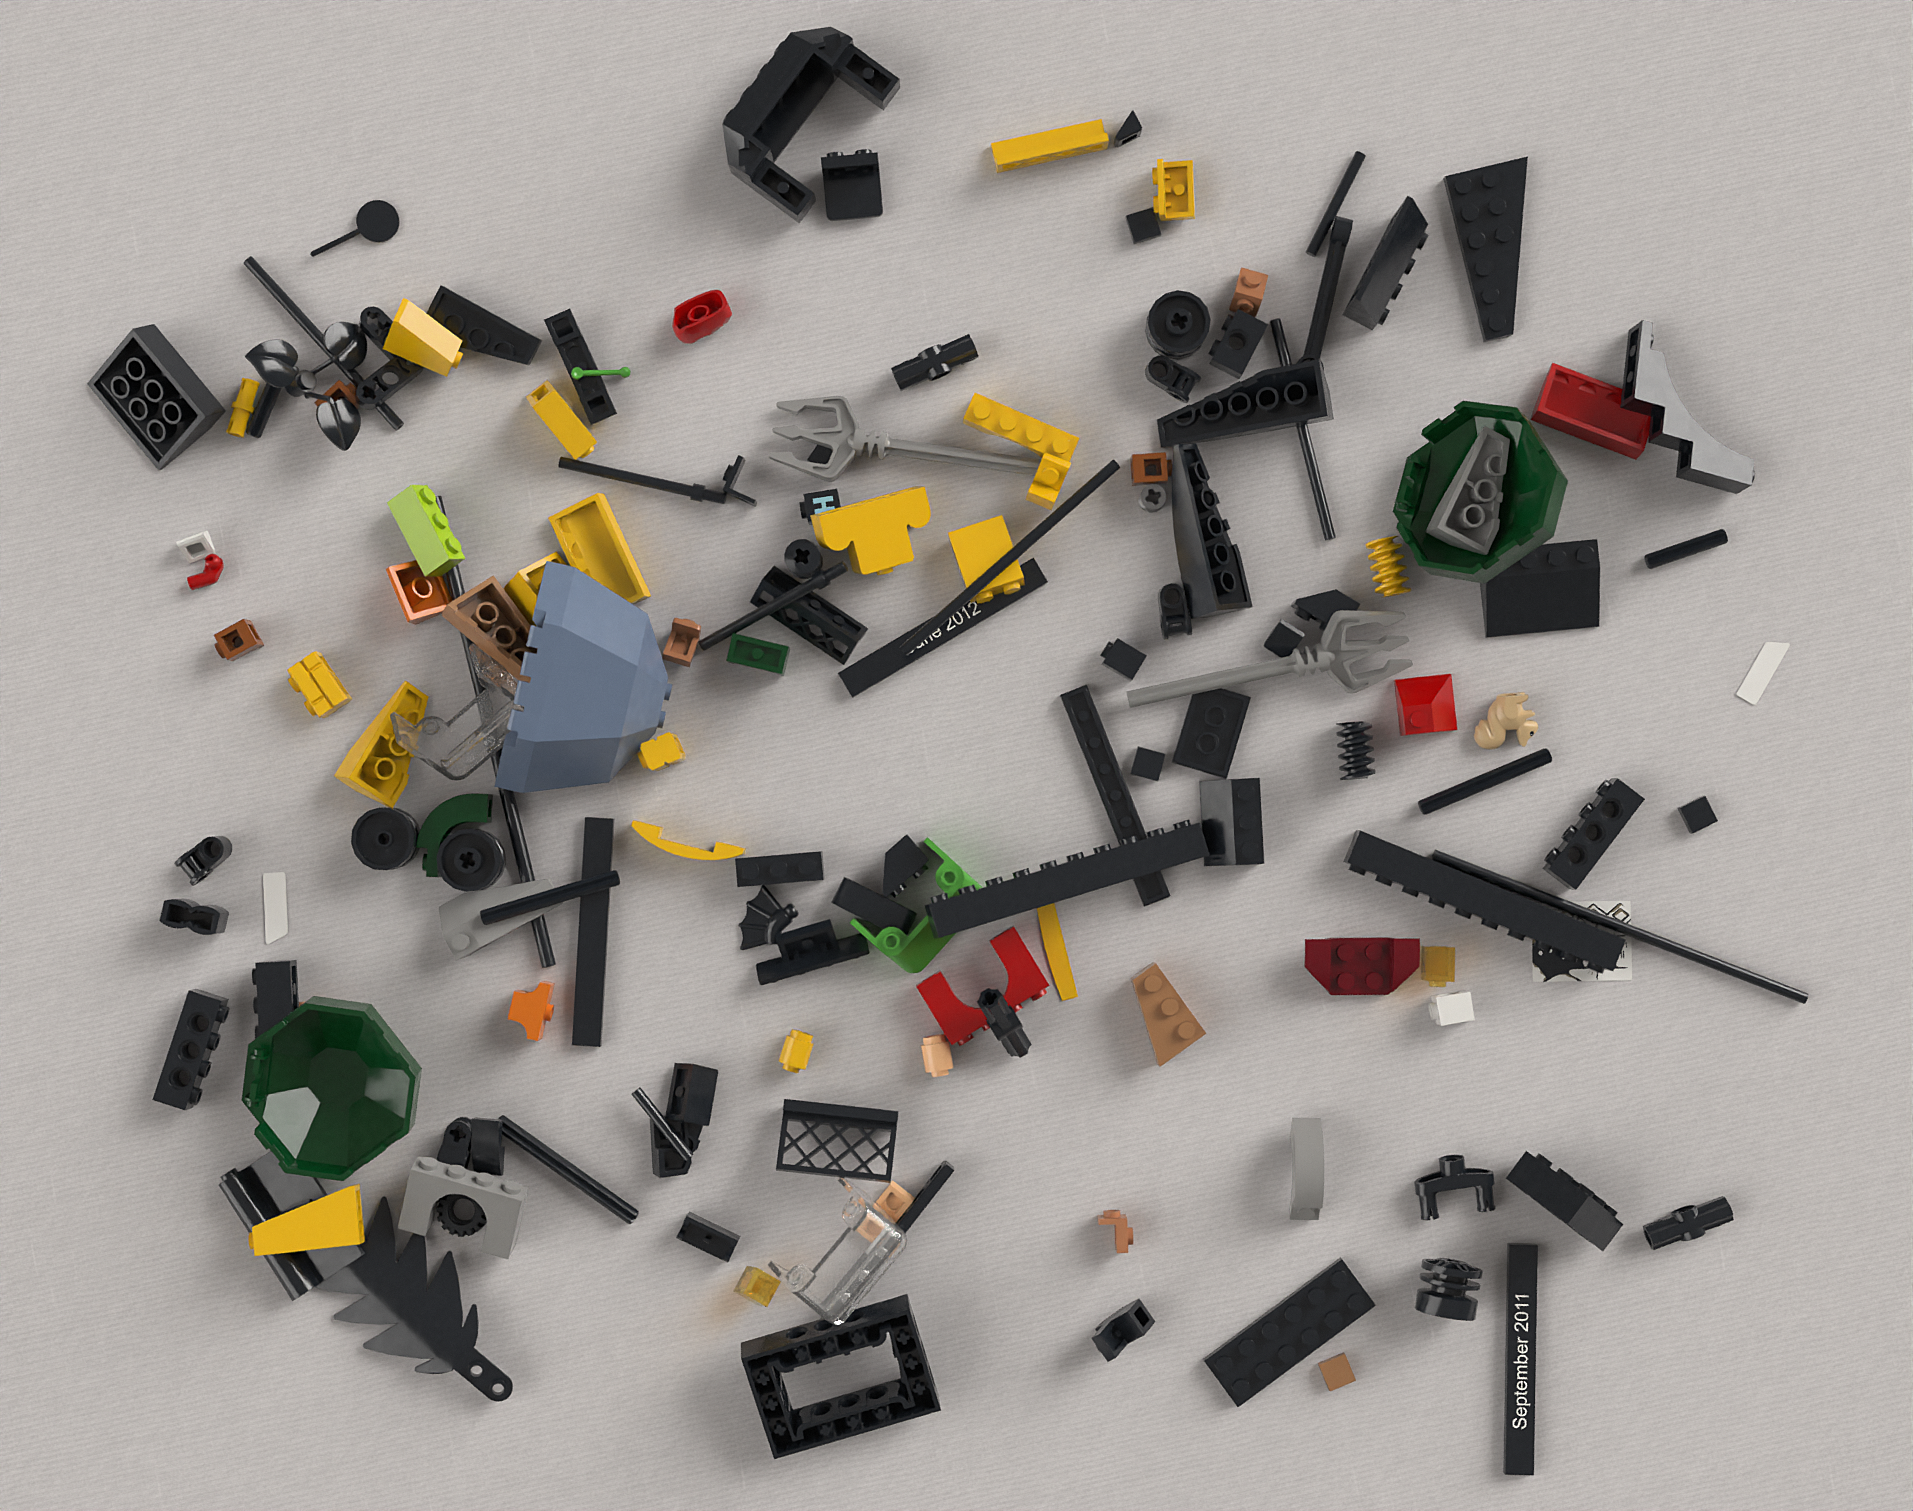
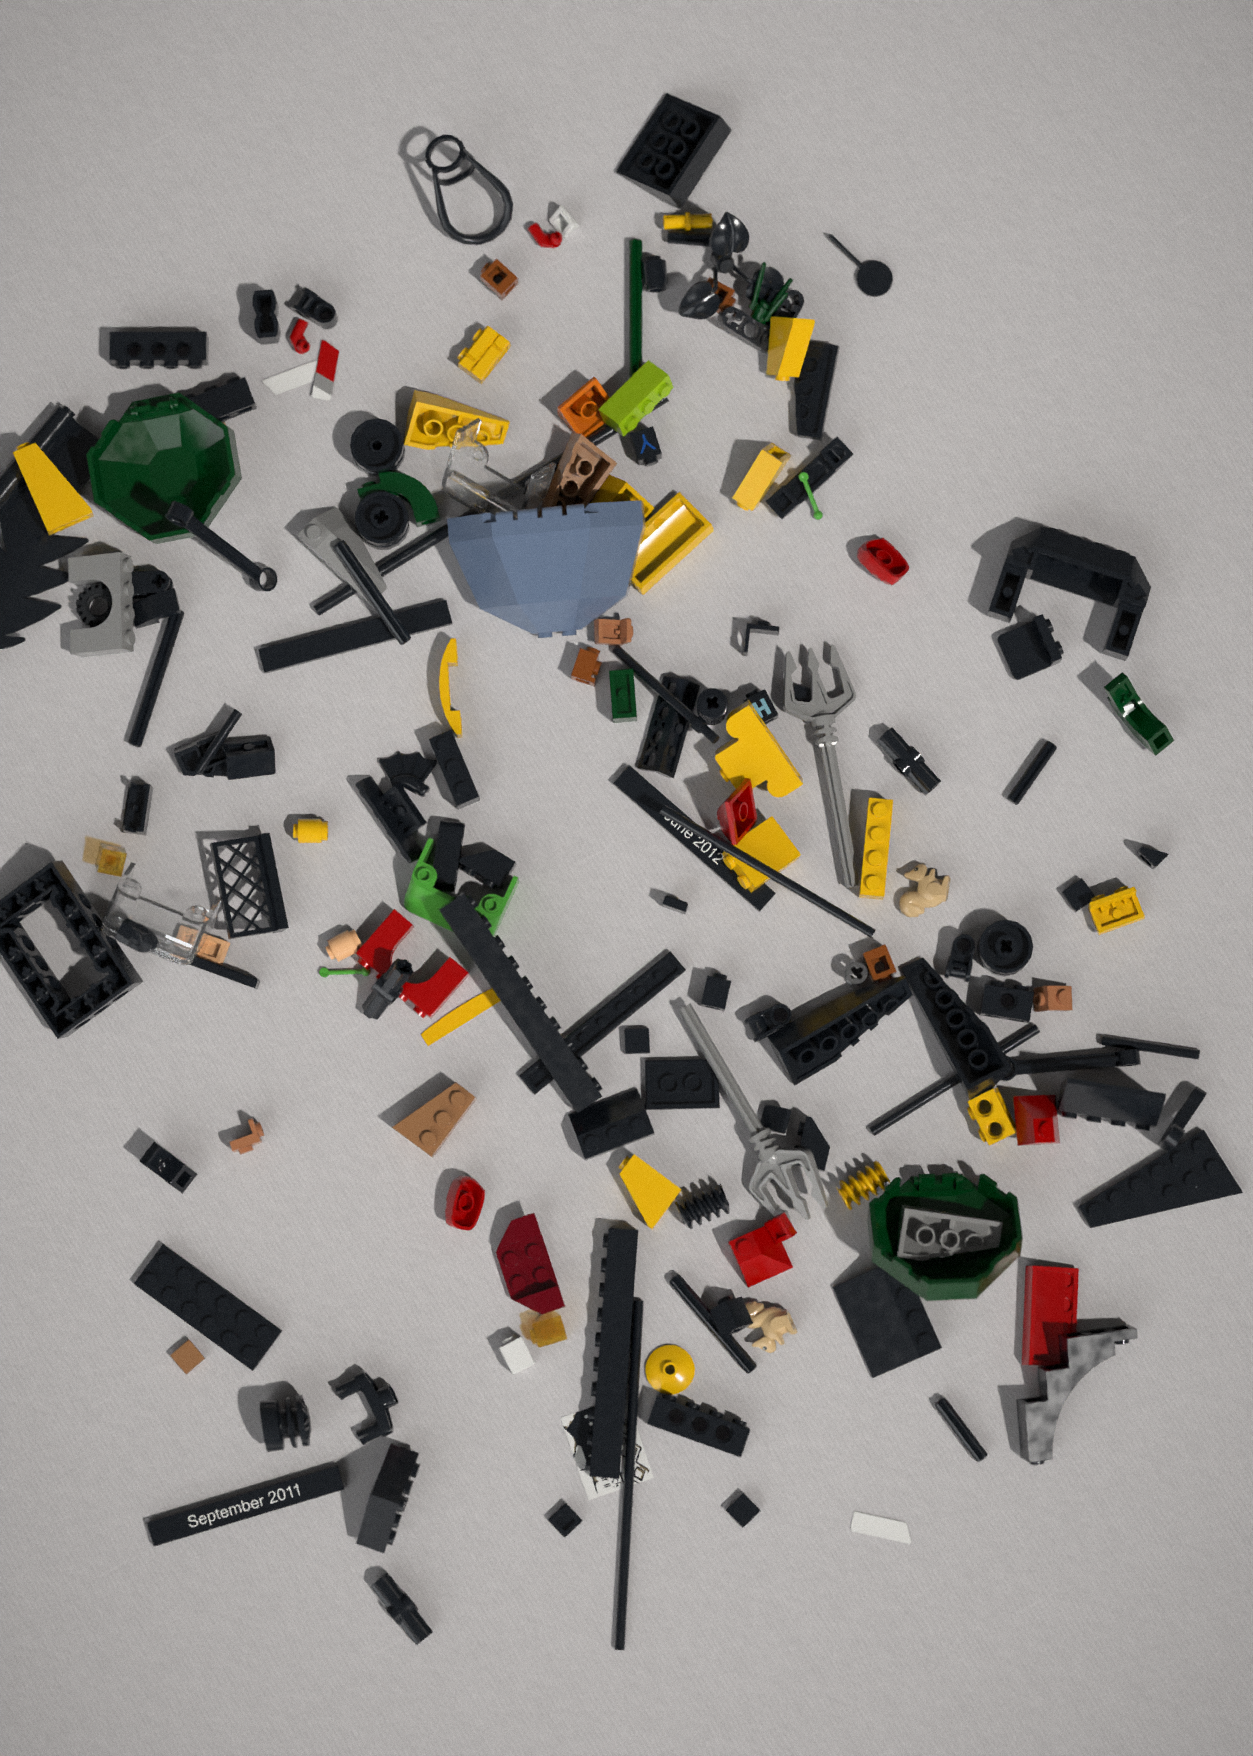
camera: 80 degrees right, 5 degrees down
(122, 608) = (492, 179): none -> black animal
(232, 888) = (297, 337): none -> red arm
(279, 869) = (325, 371): none -> sticker
(291, 463) = (655, 274): none -> black brick
(315, 334) = (767, 257): black piece -> none
(320, 497) = (635, 306): none -> dark green axle
(372, 354) = (764, 309): none -> dark green plant
(395, 1086) = (183, 516): none -> black piece
(484, 537) = (646, 446): none -> black brick
(533, 1009) = (277, 609): orange brick -> none
(661, 752) = (518, 643): yellow brick -> none
(696, 492) = (738, 604): black bar -> none
(711, 684) = (586, 666): none -> dark orange brick
(858, 1290) = (136, 936): none -> black rock
(933, 569) = (738, 813): none -> red slope
(959, 1084) = (324, 972): none -> bright green hinge
(967, 94) = (1136, 715): none -> dark green arch
(991, 231) = (1032, 772): none -> black axle
(1010, 673) = (675, 904): none -> black tile
(1048, 481) = (841, 883): yellow slope -> none
(1049, 146) = (1118, 797): yellow fence -> none
(1089, 388) = (929, 892): none -> tan animal
(1267, 1012) = (464, 1203): none -> red piece
(1307, 1168) = (346, 1275): light grey arch -> none
(1316, 804) = (648, 1189): none -> yellow slope
(1358, 393) = (998, 1113): none -> yellow brick
(1379, 354) = (1036, 1120): none -> red slope
(1407, 673) = (780, 1228): none -> red tile
(1443, 210) = (1176, 1128): none -> black beam
(1485, 758) = (731, 1315): none -> black brick
(1504, 843) = (673, 1356): none -> yellow dish
(1646, 1012) = (565, 1520): none -> black tile

